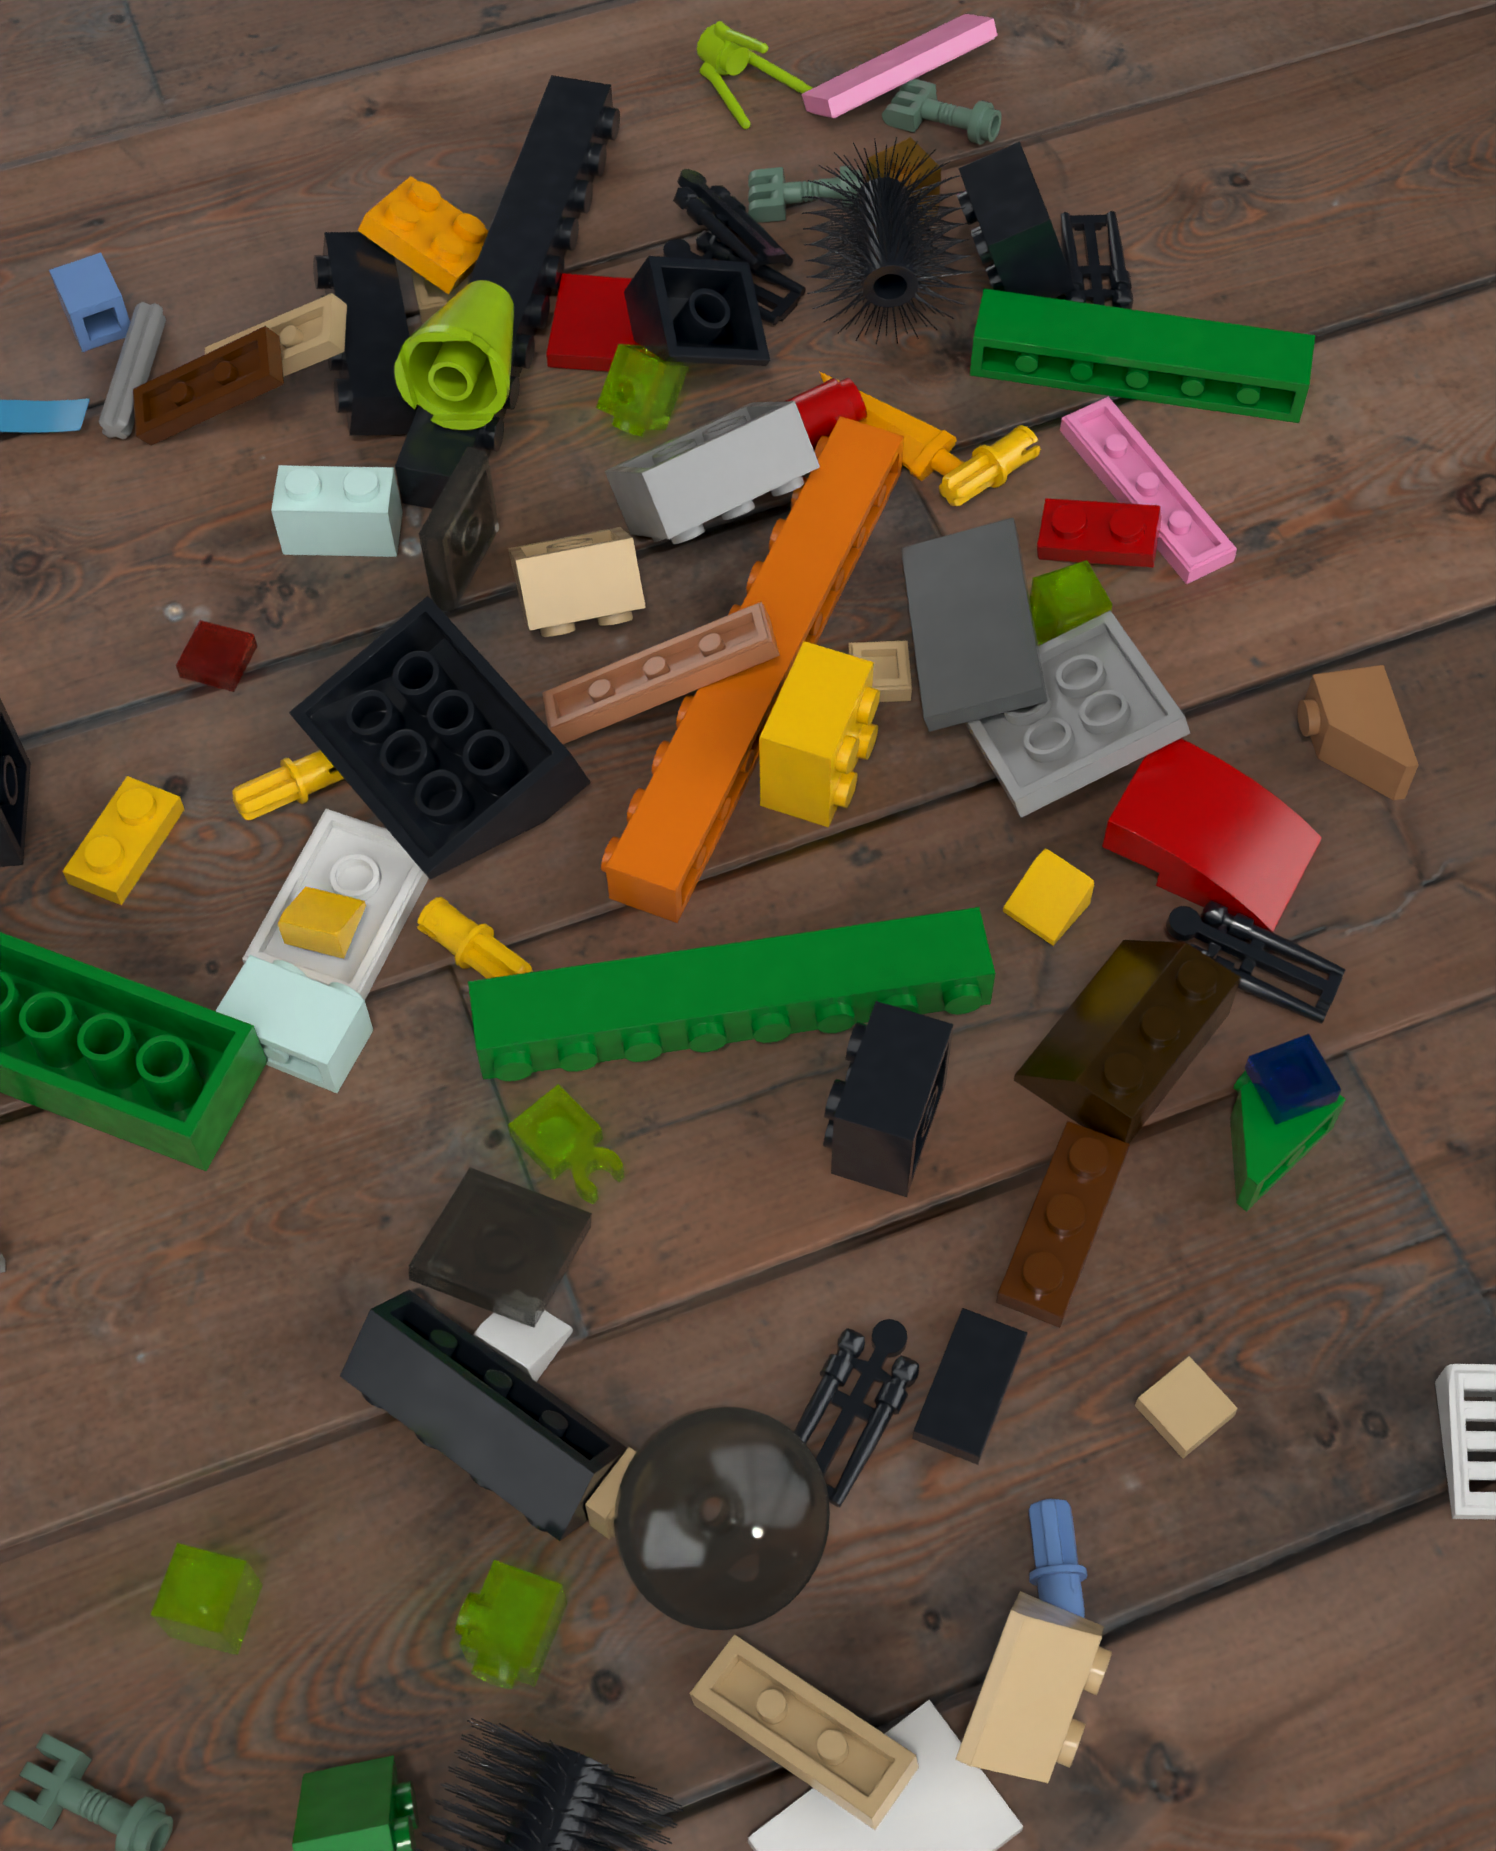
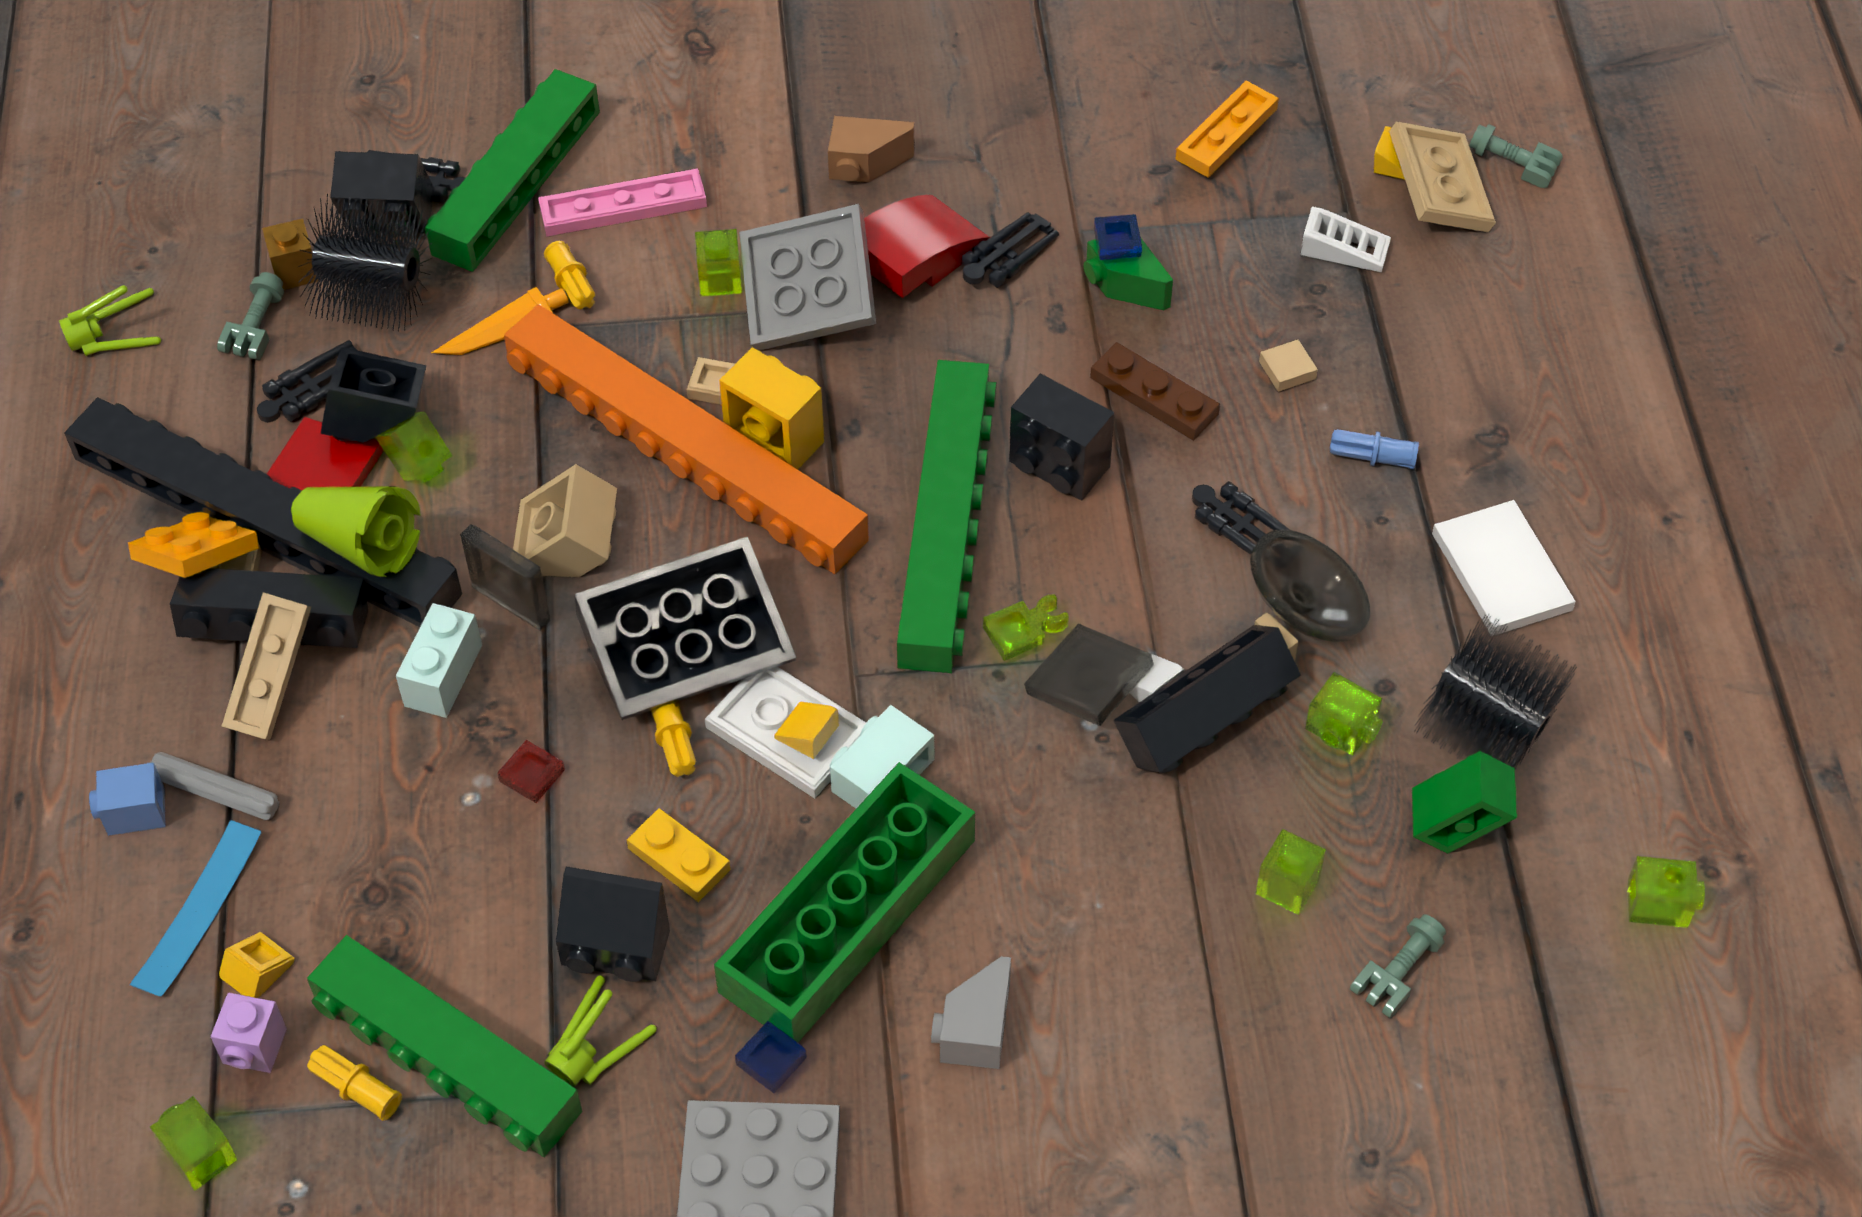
camera: 75 degrees left, 5 degrees down
(208, 386) = (282, 717): reddish brown plate -> none
(468, 941) = (852, 651): yellow axle -> none
(660, 673) = (683, 481): nougat tile -> none
(713, 471) = (521, 415): light grey brick -> none
(730, 212) = (254, 370): black piece -> none
(805, 1731) = (1442, 581): tan plate -> none
(824, 405) = (483, 352): red brick -> none
(899, 65) = (158, 229): bright pink tile -> none
(919, 101) = (201, 235): sand green hinge -> none
(969, 1386) = (1247, 462): black tile -> none
(972, 625) = (708, 311): dark grey tile -> none
(1033, 1690) = (1445, 465): tan slope -> none
(1050, 897) = (927, 334): yellow slope -> none
(1099, 532) = (654, 232): red plate -> none
(1130, 1035) = (1044, 317): dark brown slope -> none

